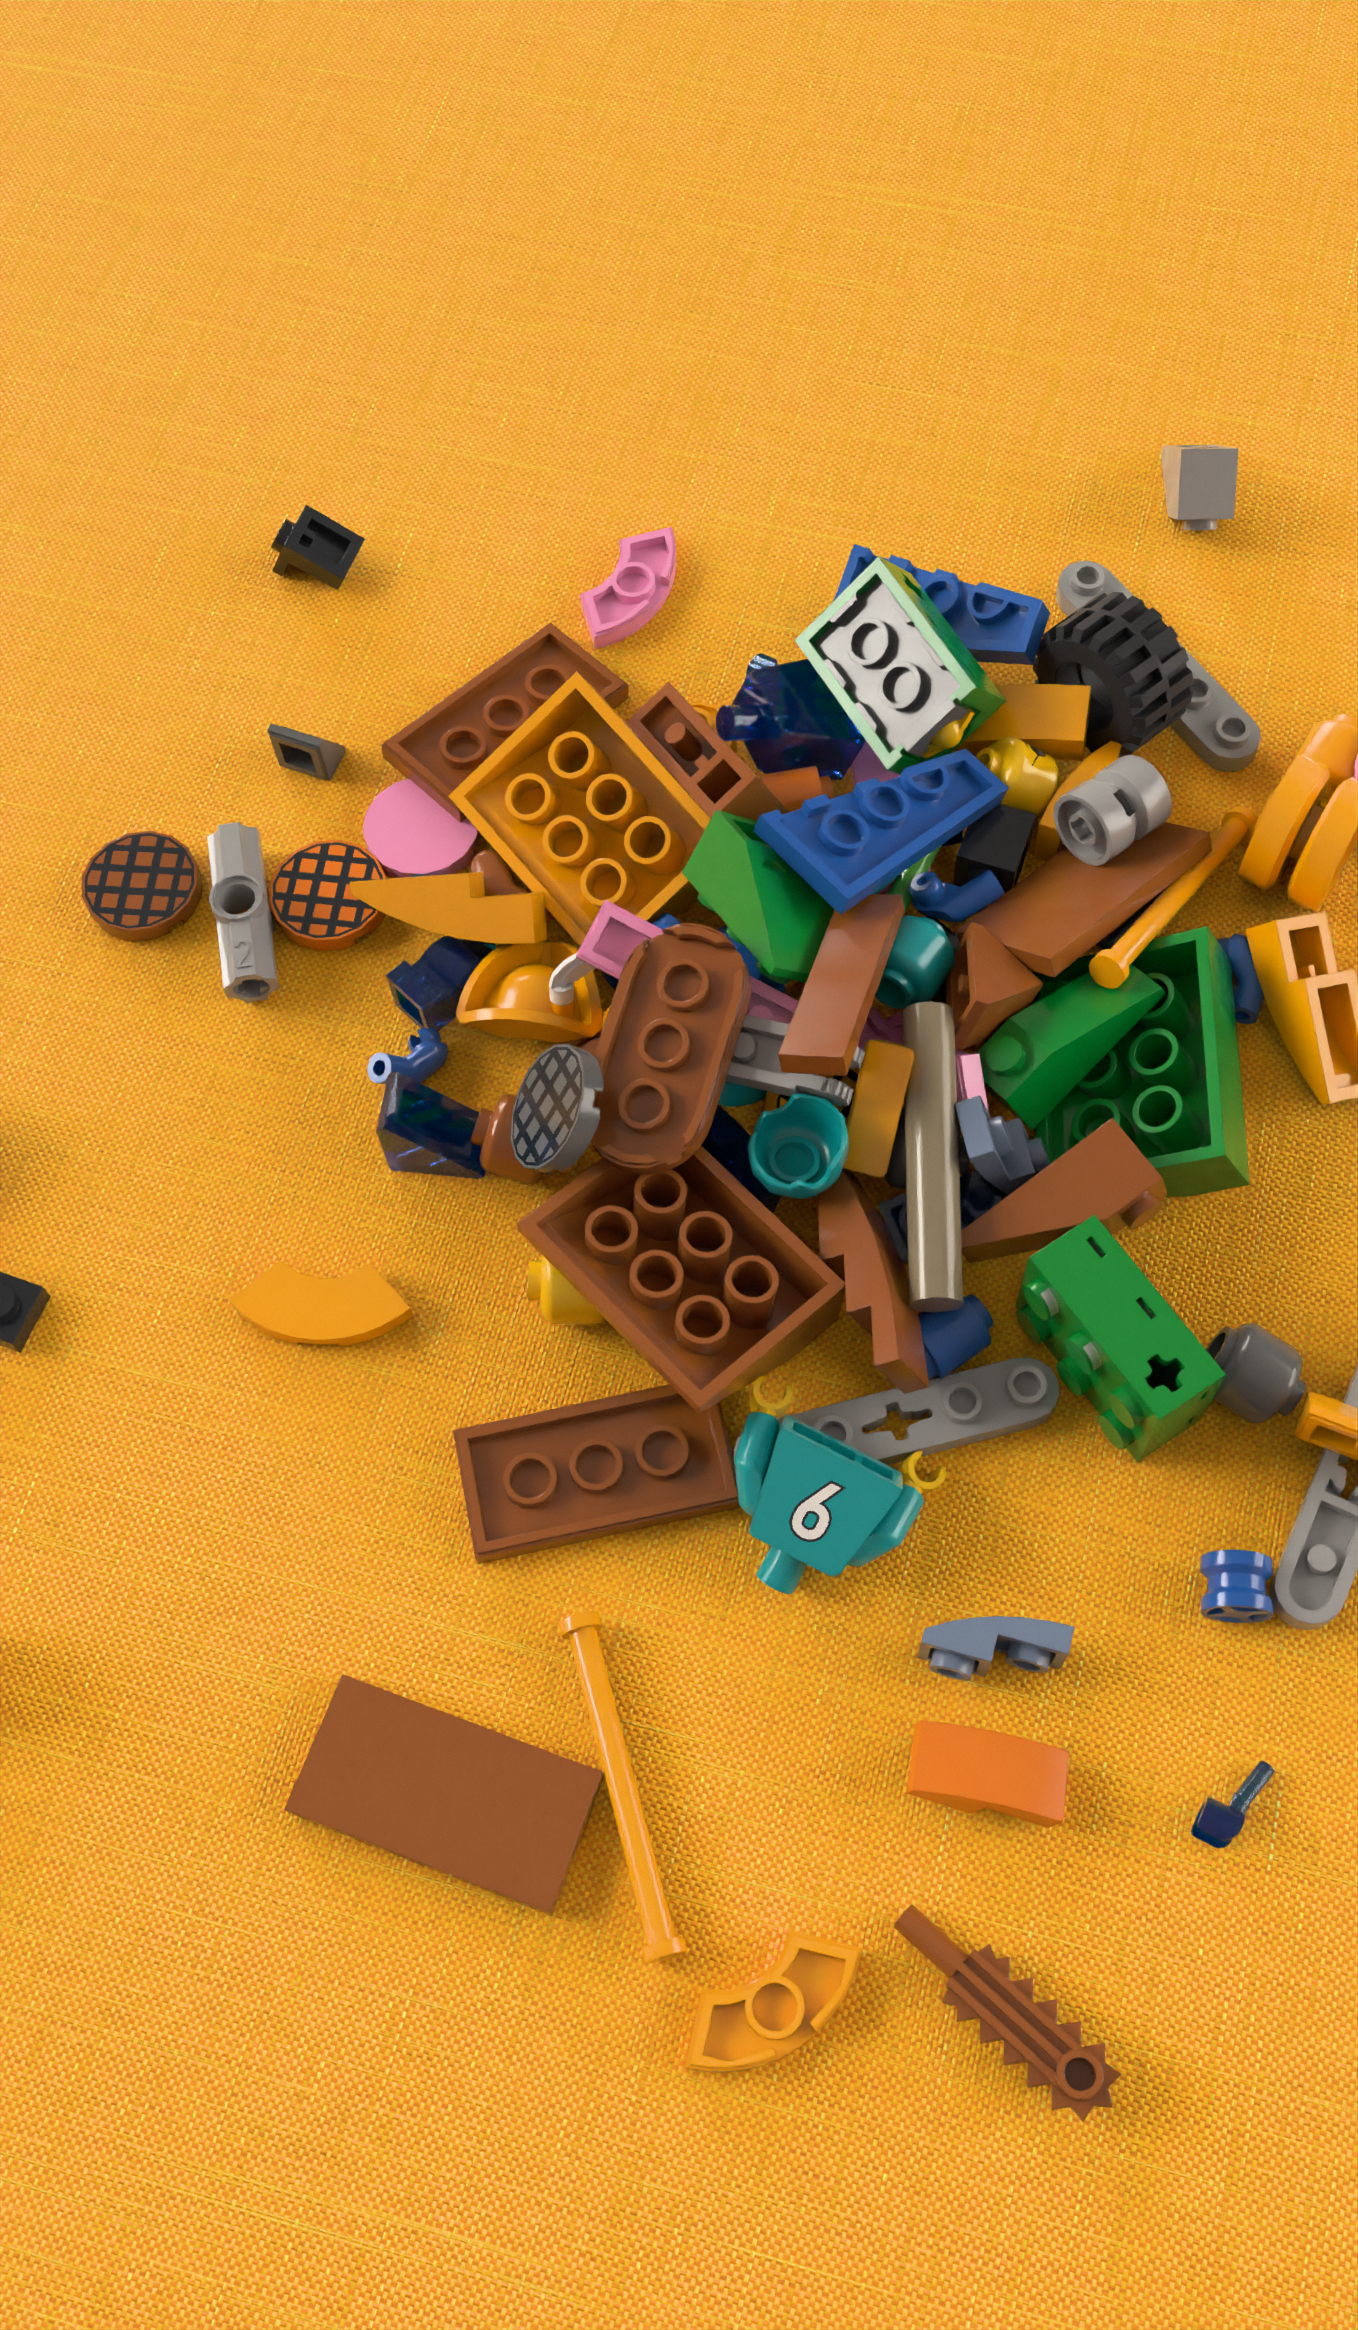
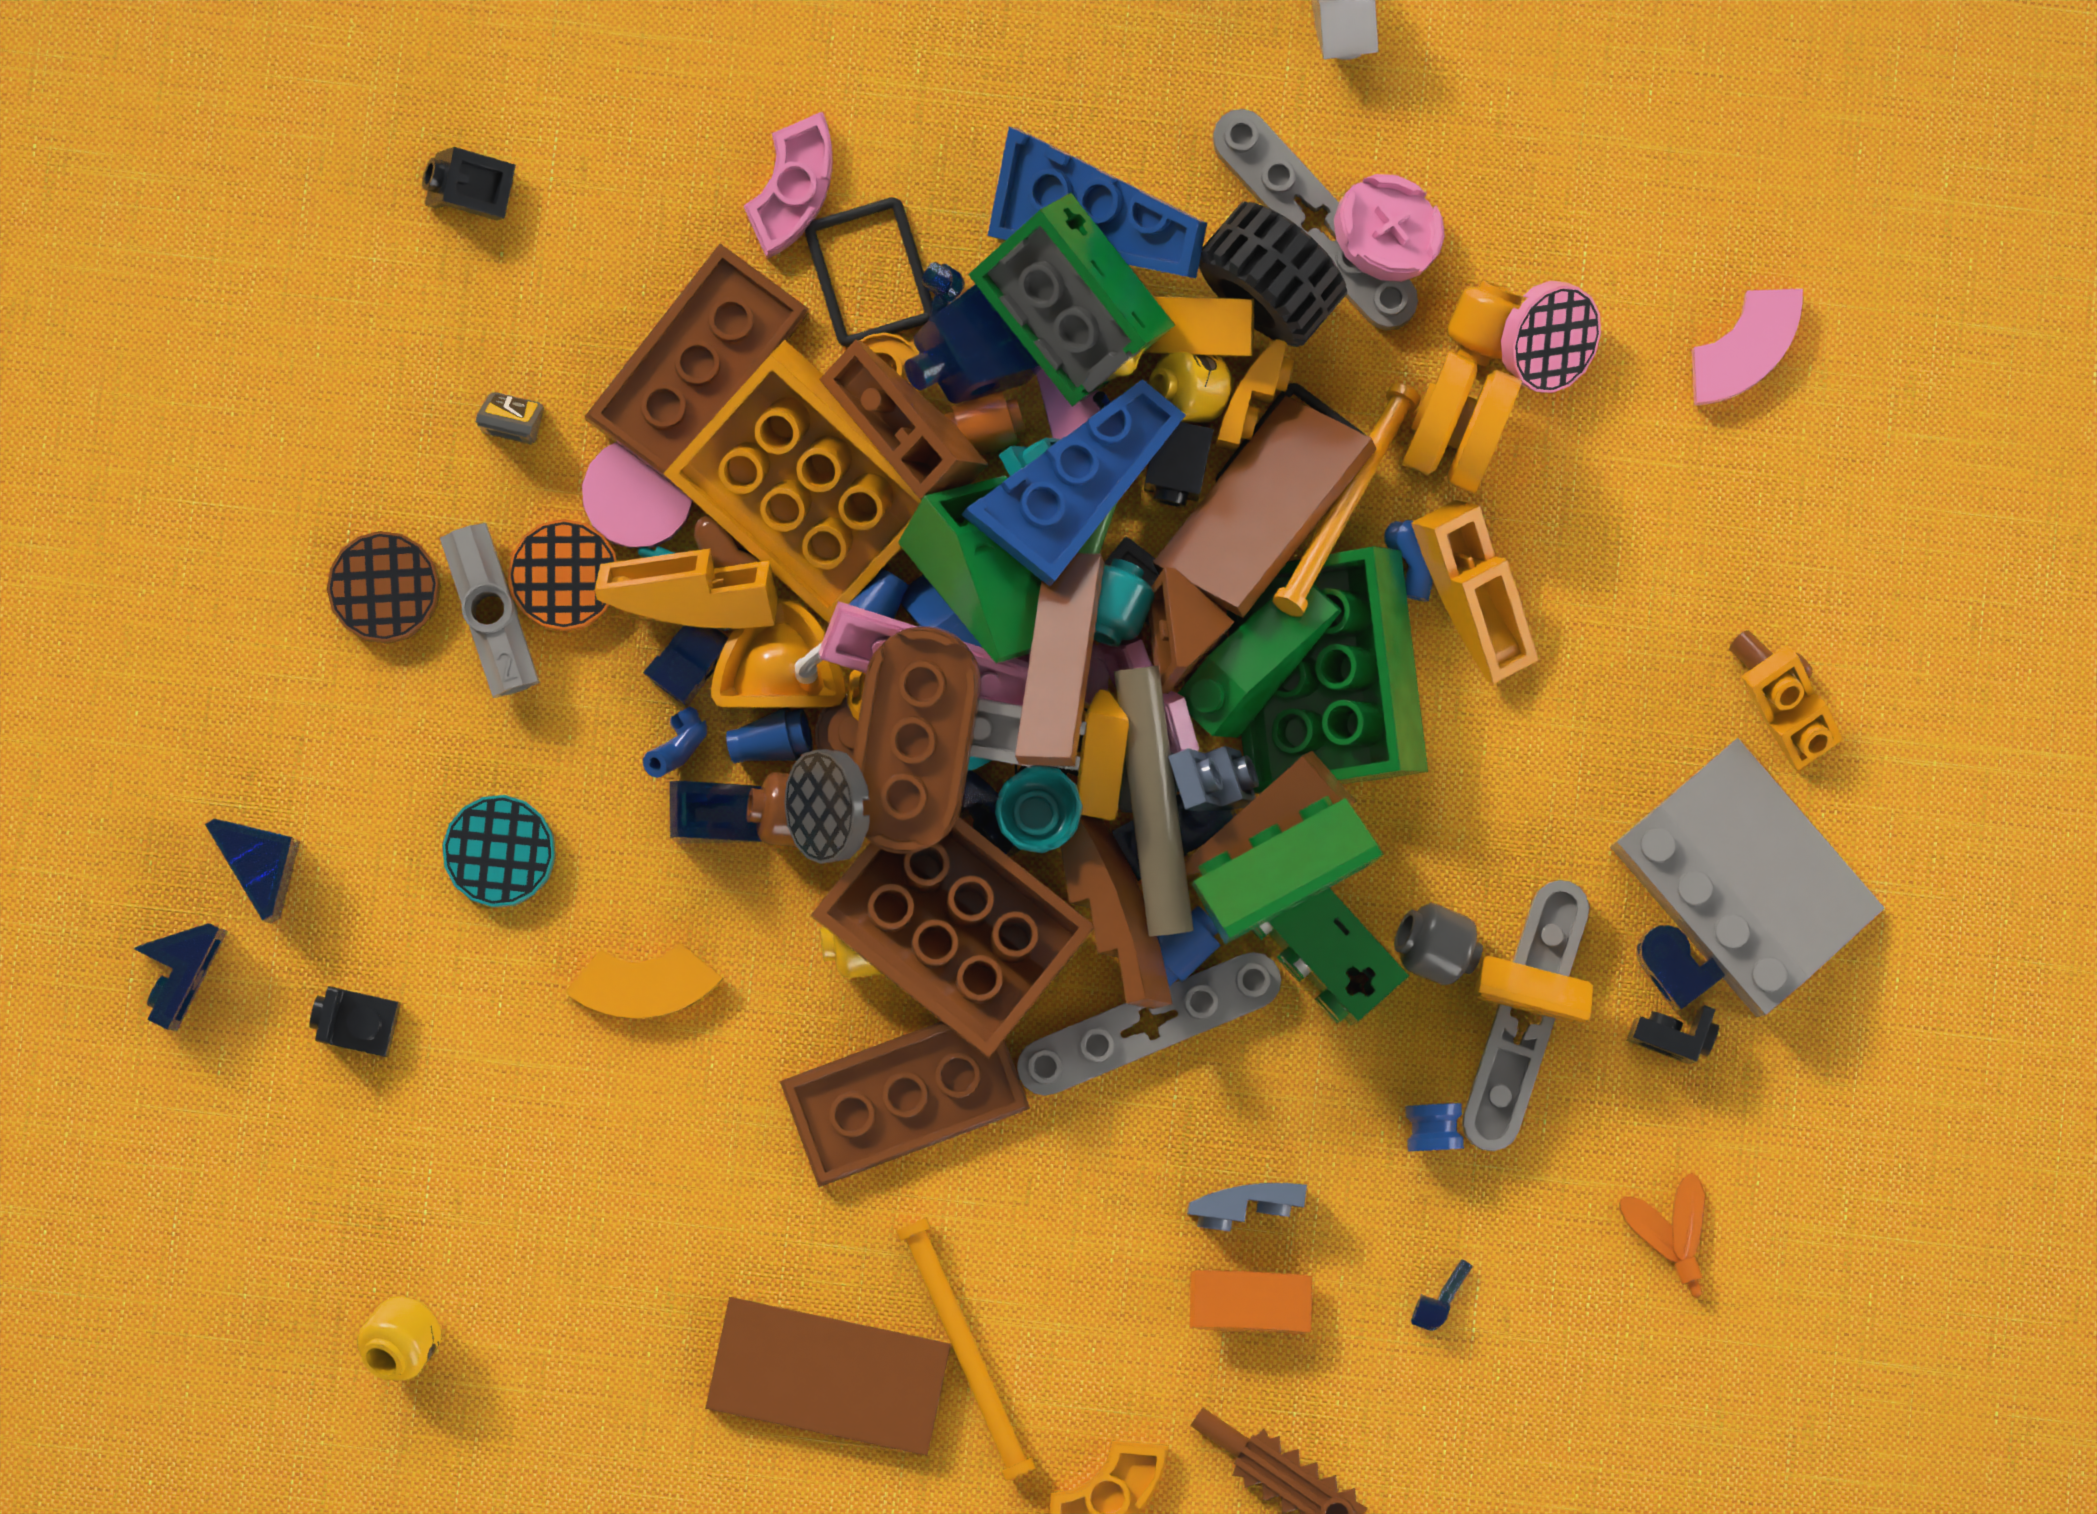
camera: 15 degrees left, 20 degrees up
(195, 1149) = (499, 851): none -> tile
(503, 1067) = (774, 737): none -> blue cone
(688, 618) = (825, 282): none -> black piece
(819, 1496) = (1094, 1103): teal torso -> none
(952, 902) = (1146, 527): blue arm -> none
(1089, 1222) = (1285, 867): none -> green slope
(1112, 810) = (1288, 421): light grey wheel -> none
(1236, 669) = (1388, 228): none -> bright pink tile

